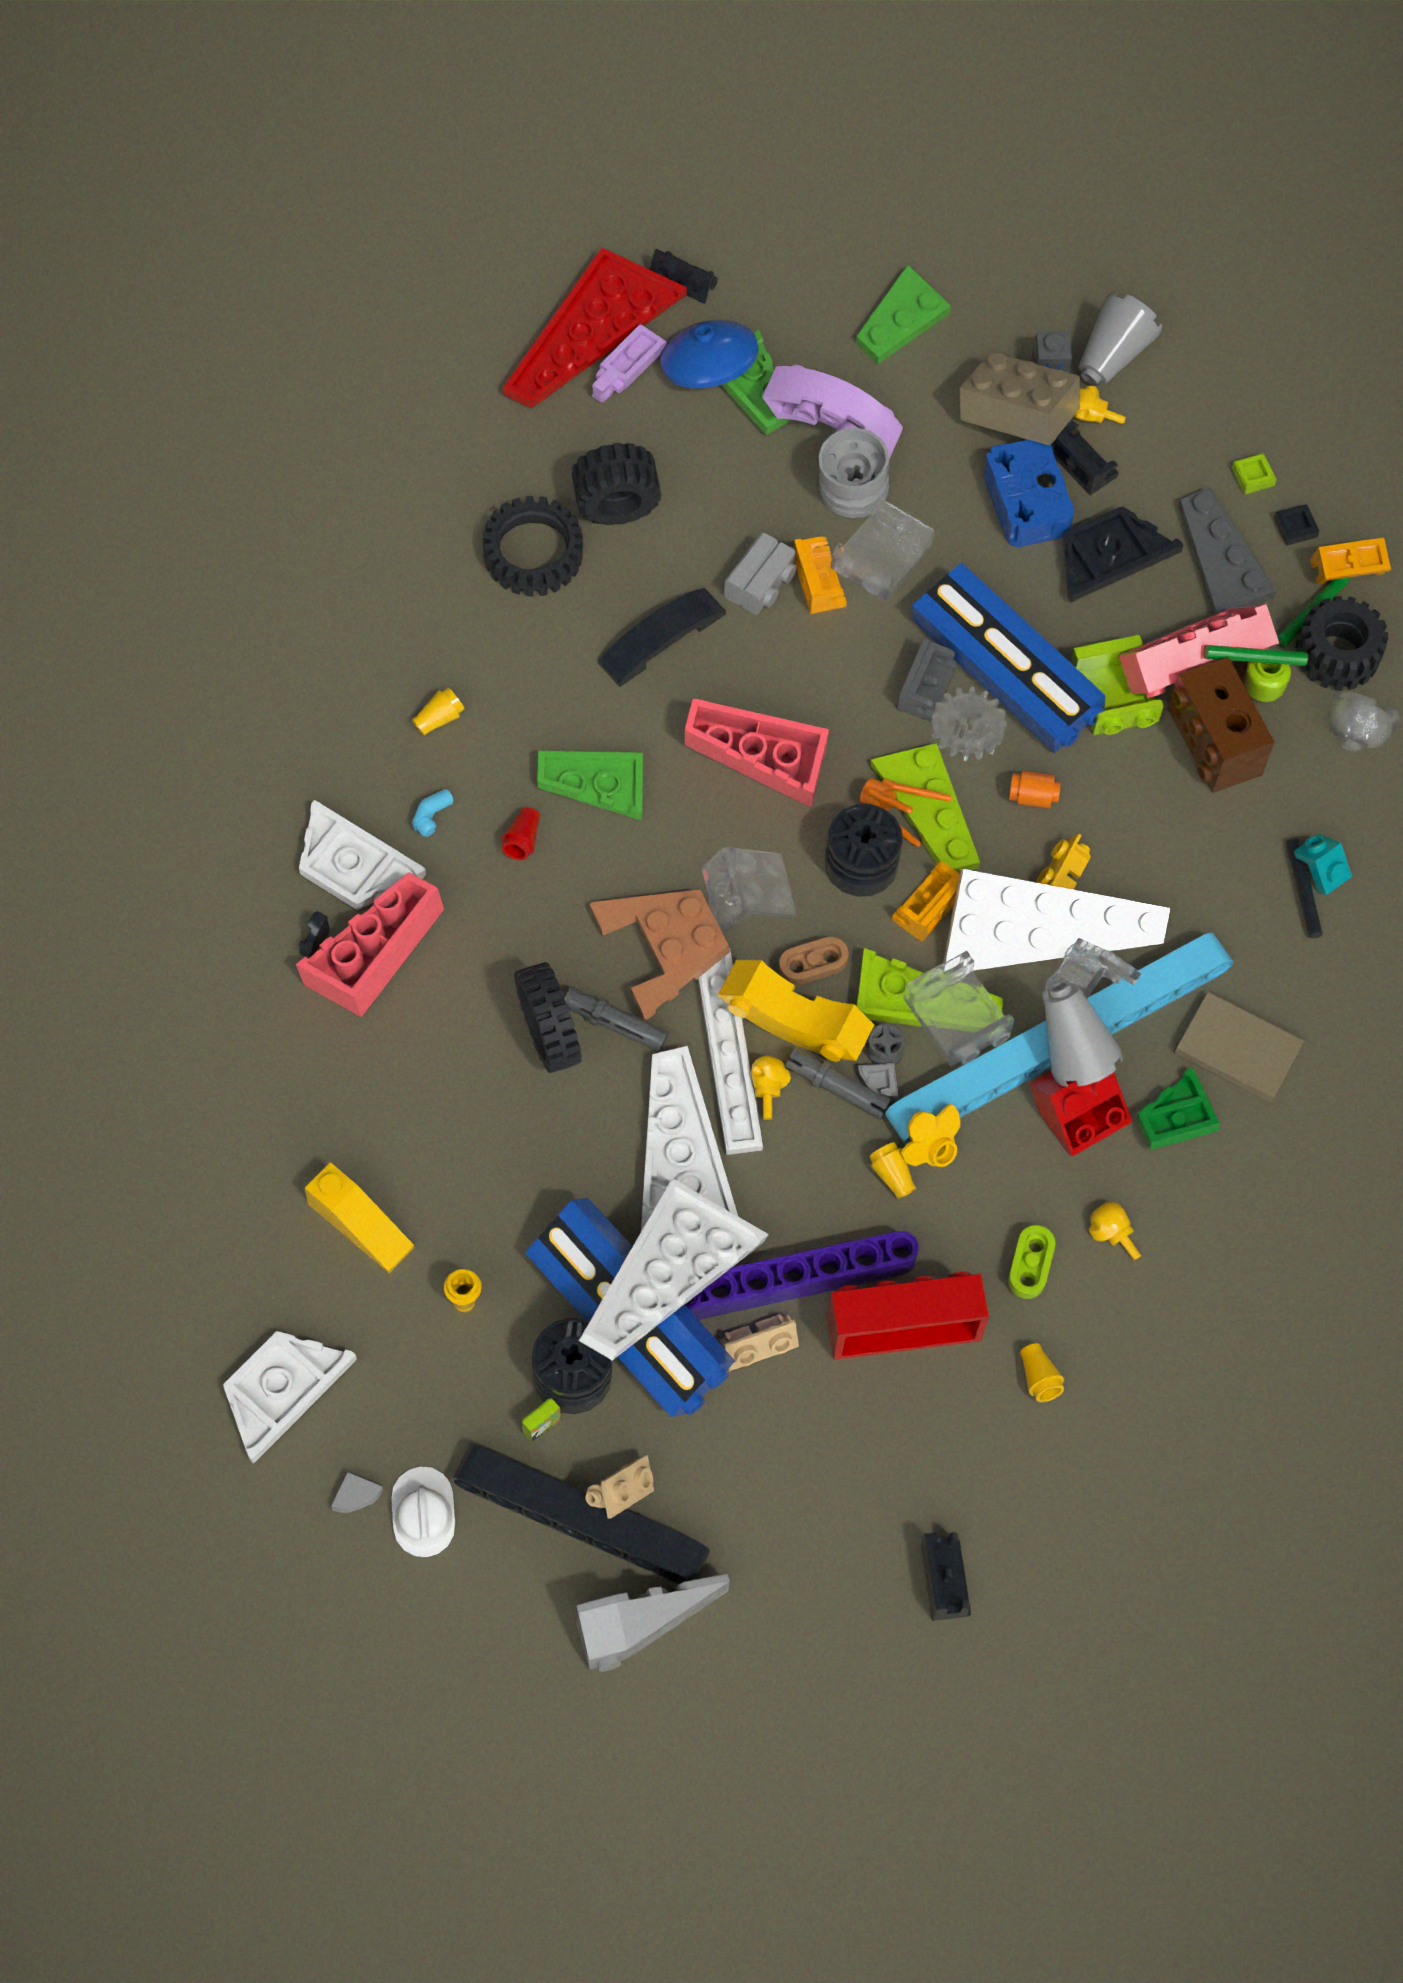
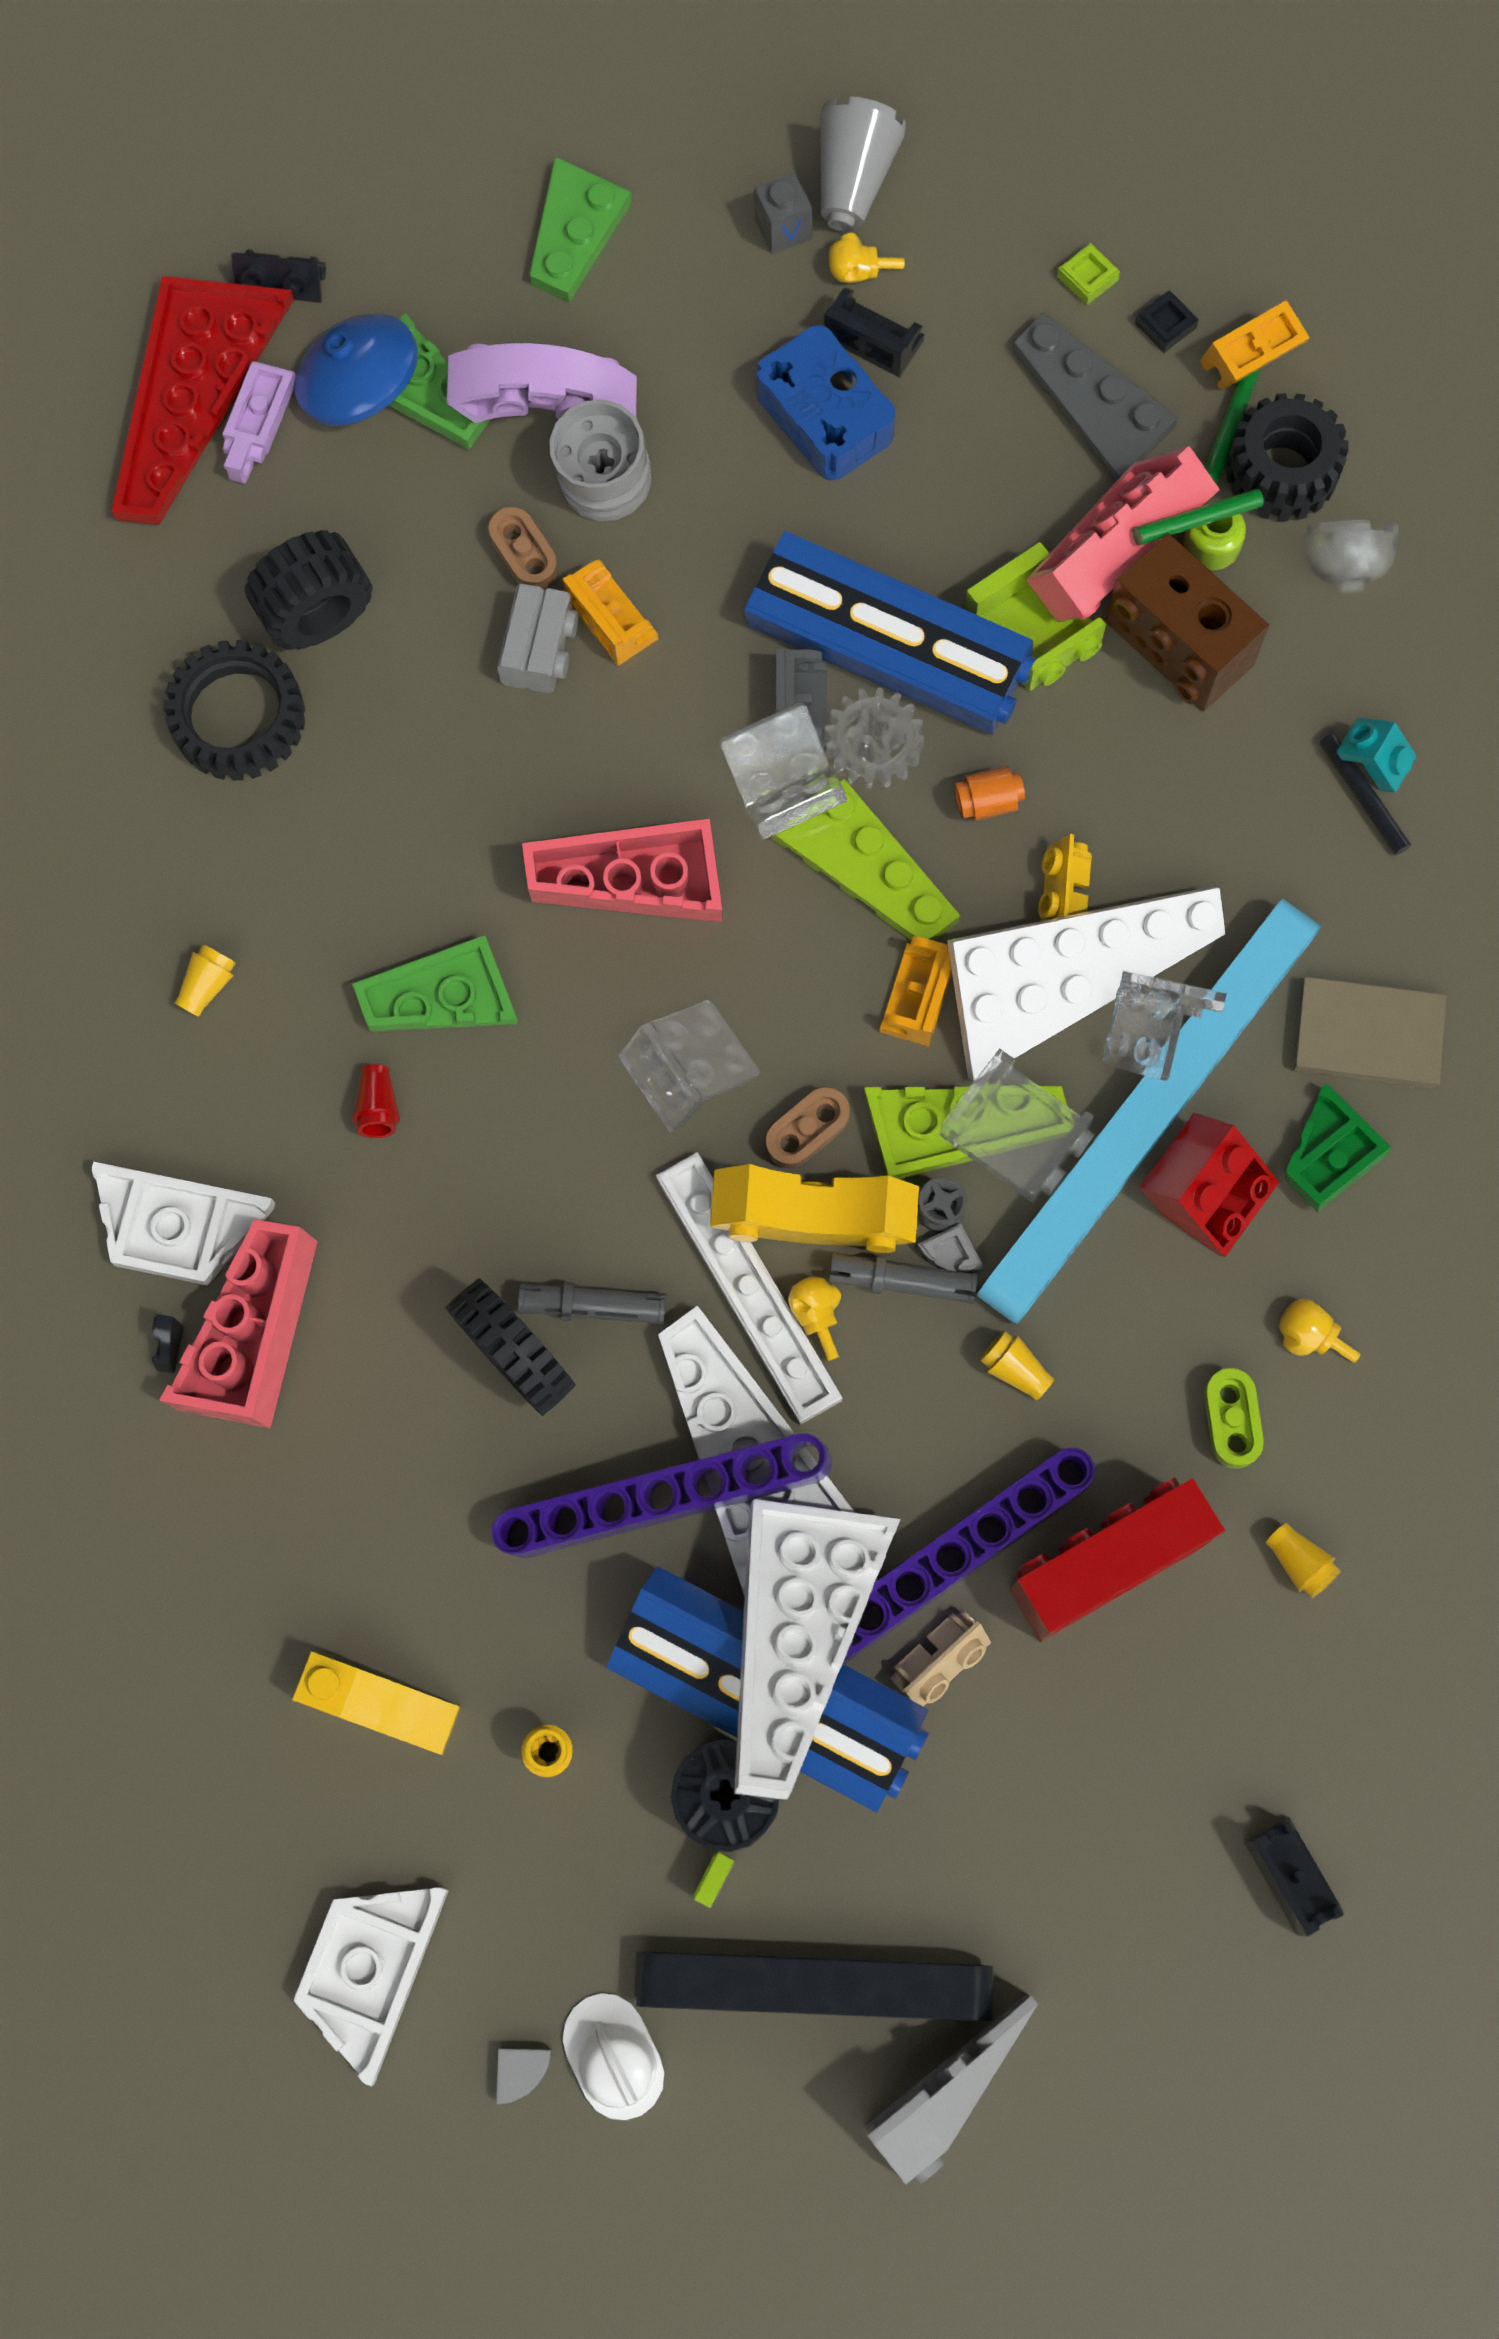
camera: 15 degrees left, 10 degrees up
(428, 806) = (242, 1114): medium azure arm -> none
(597, 1145) = (637, 1494): none -> dark purple beam
(622, 1488) = (855, 1934): tan hinge -> none
(659, 631) = (440, 766): black slope -> none
(679, 934) = (629, 1160): nougat wing -> none
(776, 515) = (524, 552): none -> medium nougat plate
(862, 867) = (810, 984): black wheel -> none
(883, 550) = (676, 548): clear panel -> none
(883, 796) = (804, 878): orange plant -> none
(893, 717) = (781, 770): none -> clear bracket
(932, 1138) = (1051, 1308): yellow plate -> none
(1020, 398) = (768, 283): dark tan brick -> none
(1077, 1037) = (1188, 1116): light grey cone -> none
(1112, 550) = (957, 441): black wing -> none

